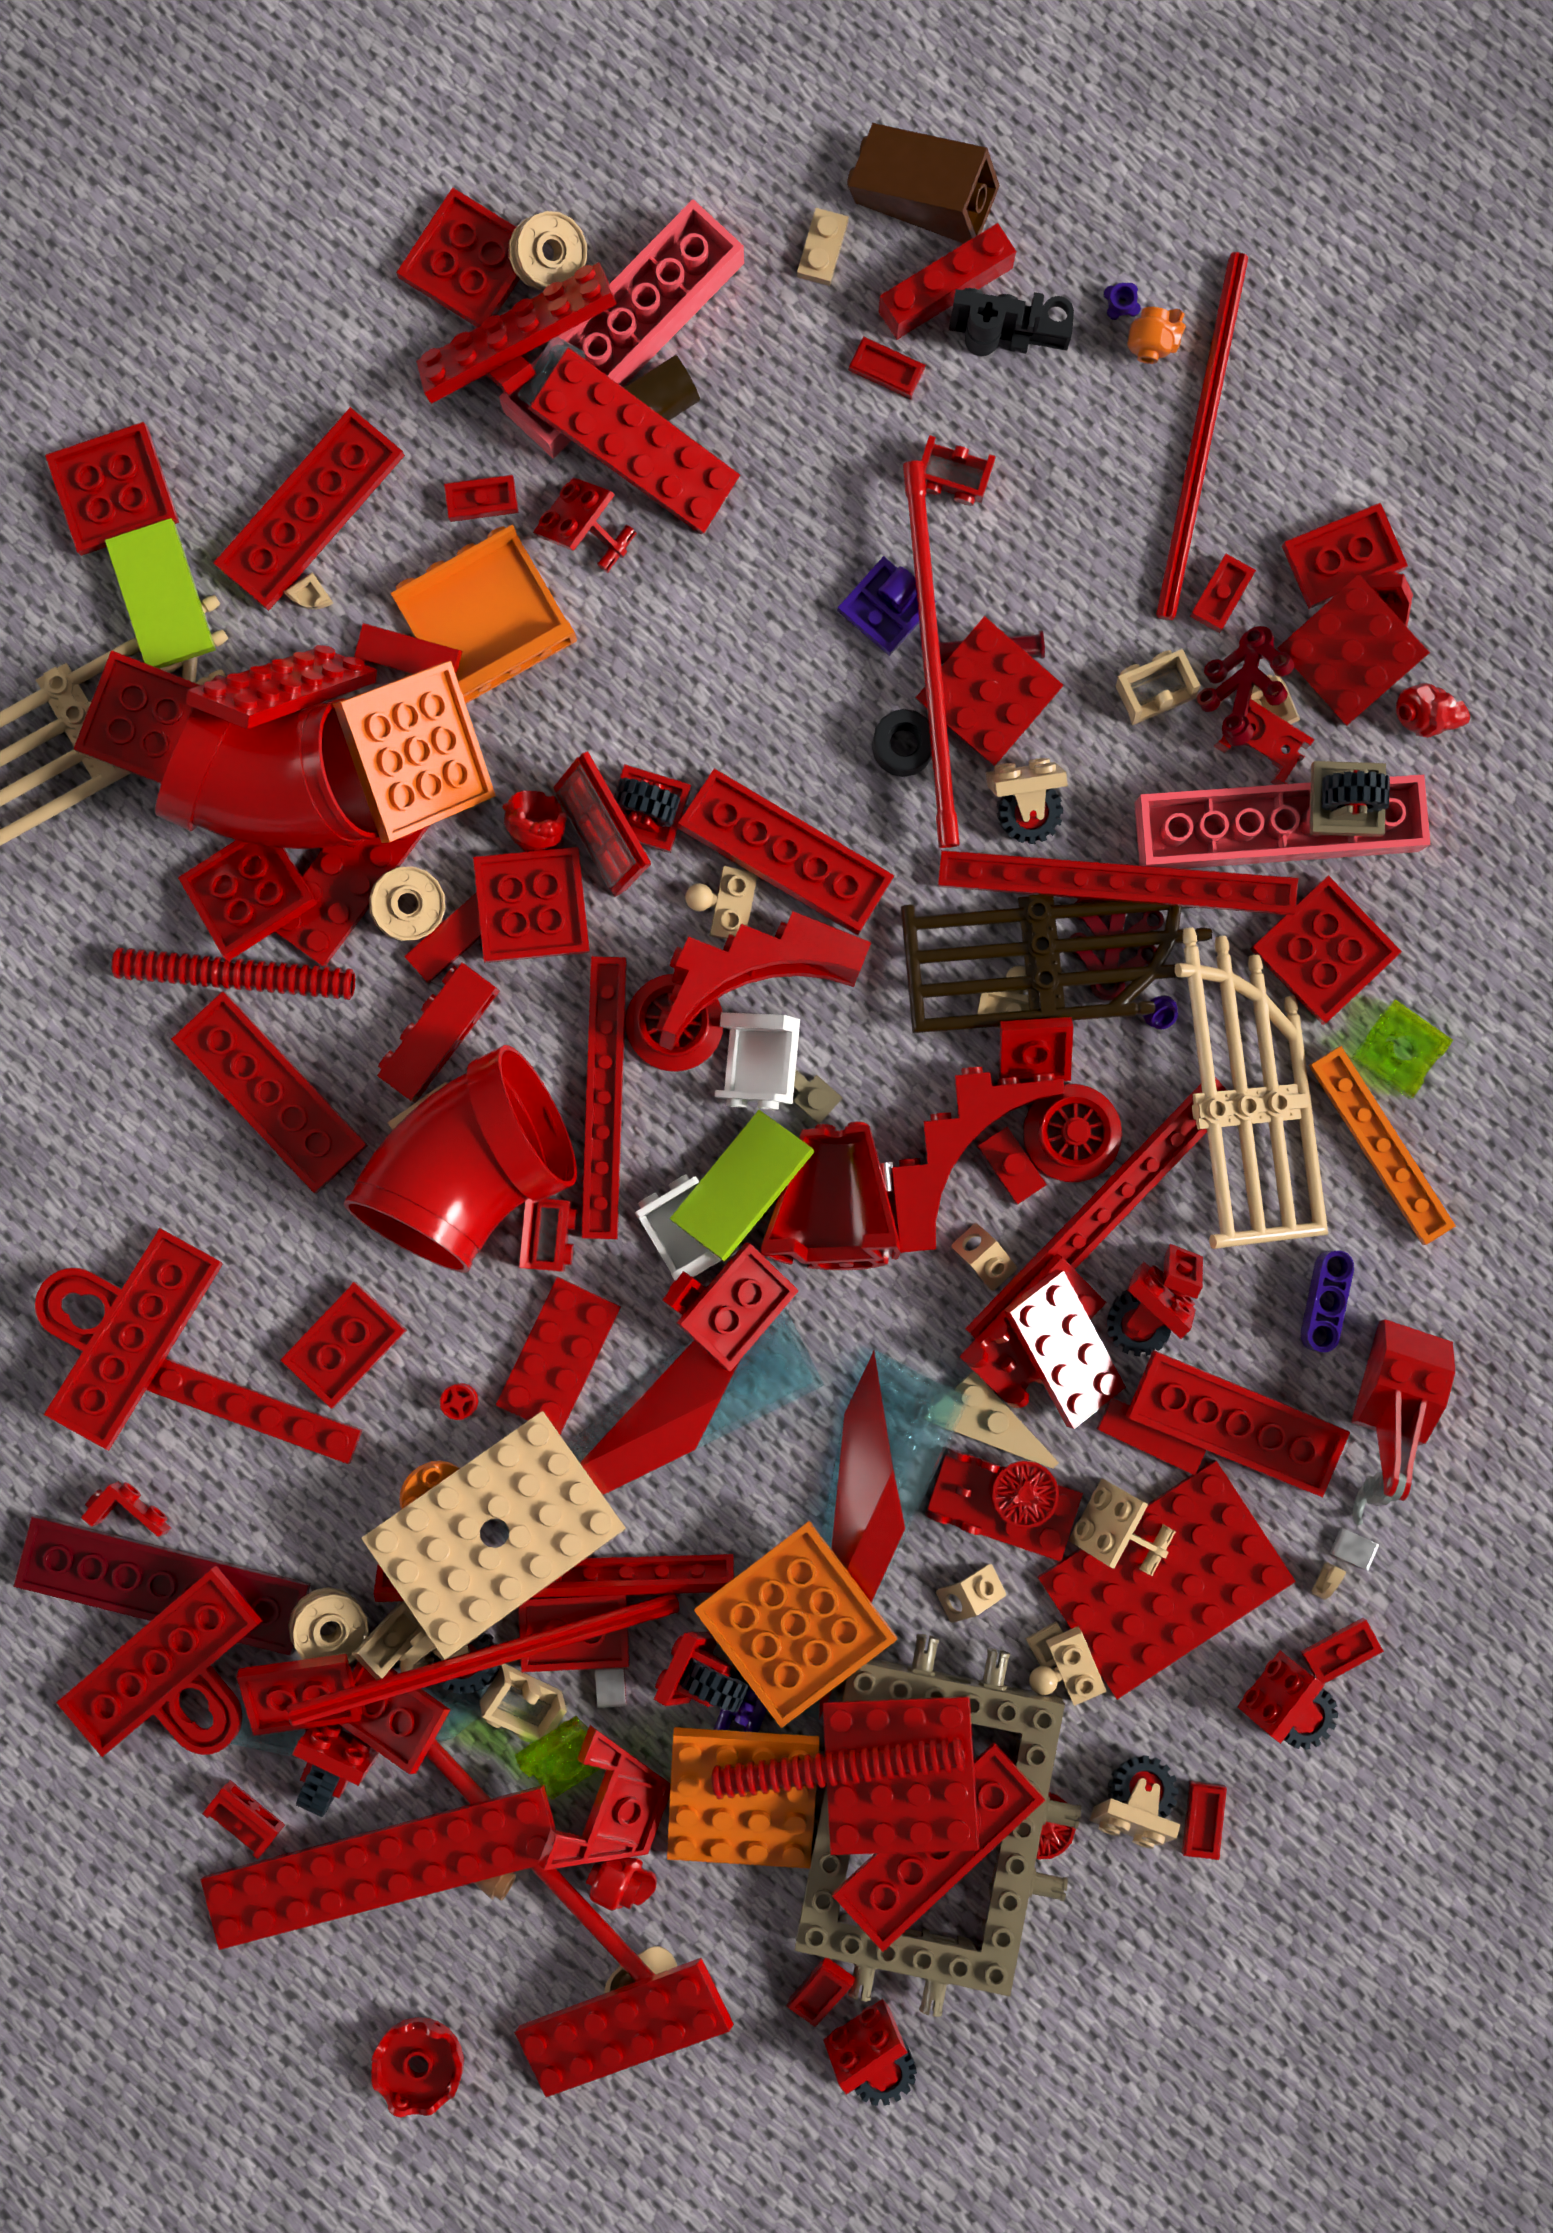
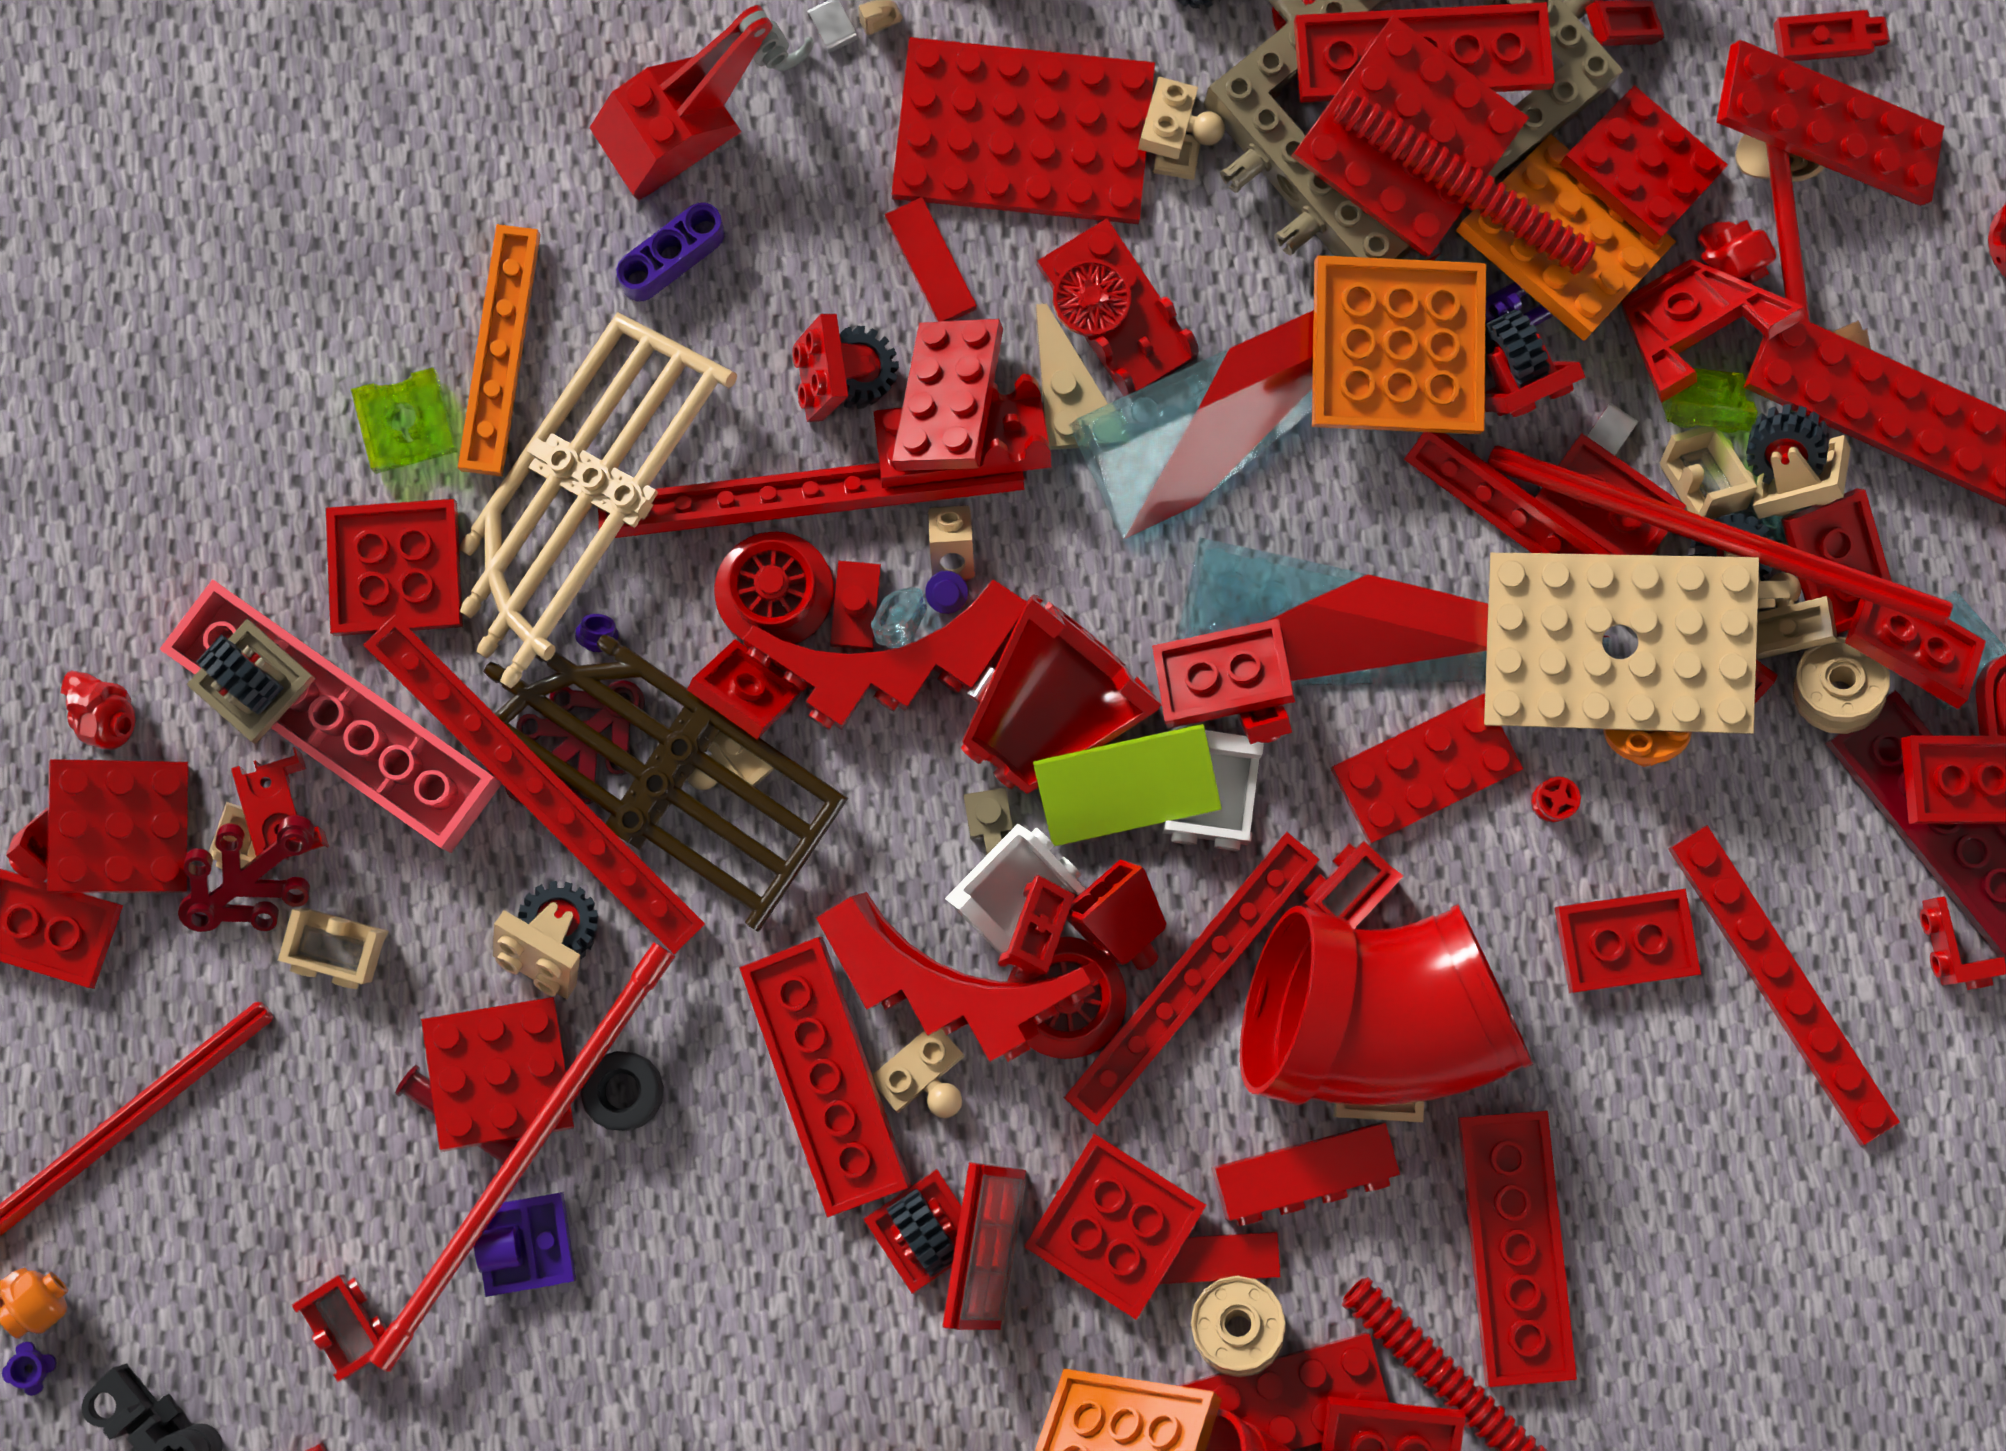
camera: 150 degrees left, 5 degrees down
(130, 1340) = (1837, 1107): red plate -> none
(332, 1762) = (1932, 557): red plate -> none
(468, 1755) = (1795, 462): none -> plate
(534, 820) = (1045, 1308): red hair -> none
(673, 2101) = (1829, 35): none -> red hinge
(680, 1097) = (1120, 915): none -> red torso
(724, 1044) = (1038, 928): none -> red hinge
(729, 1896) = (1643, 164): none -> red plate
(960, 1220) = (946, 592): none -> dark purple plate
(975, 1594) = (1209, 250): tan bracket -> none
(976, 1176) = (899, 617): none -> clear light blue plate
(1110, 1524) = (1035, 210): tan plate -> none
(1183, 1272) = (780, 378): red plate -> none
(1222, 593) = (190, 987): red plate -> none
(1237, 1423) = (846, 209): red plate -> none

